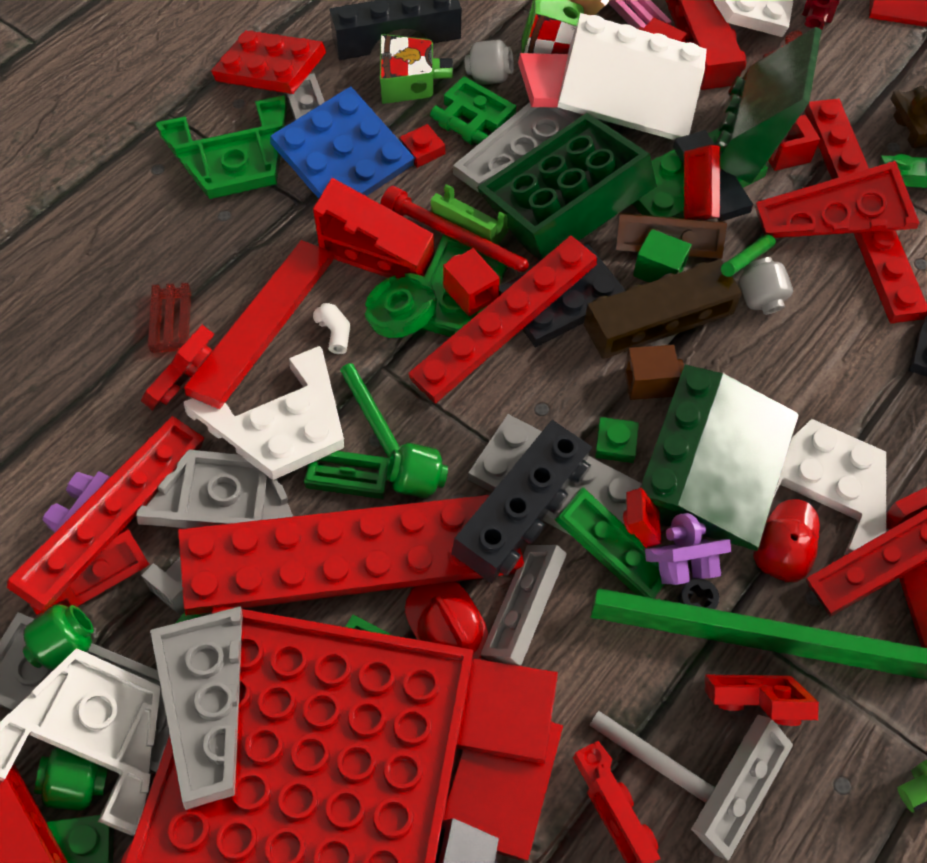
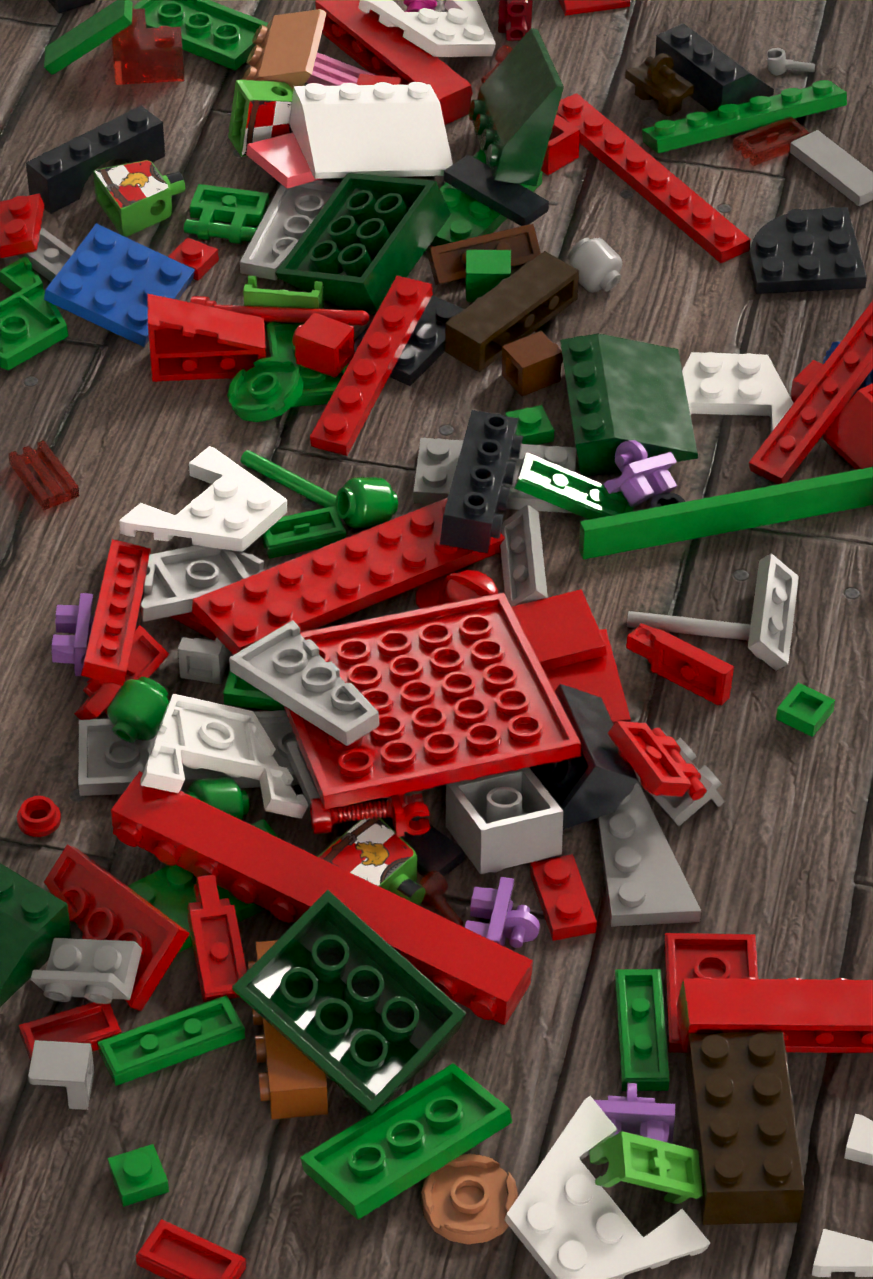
camera: 25 degrees left, 15 degrees down
(186, 361) = (94, 498): red plate -> none
(258, 325) = (143, 443): red tile -> none
(332, 317) = (215, 426): white arm -> none
(489, 62) = (215, 164): light grey head -> none
(642, 518) = (588, 460): red plate -> none
(702, 183) = (492, 196): red tile -> none
(748, 255) = (566, 243): green bar -> none
(777, 695) = (767, 540): red plate -> none
(780, 554) = (721, 448): red cap -> none
(849, 204) = (629, 177): red wing -> none

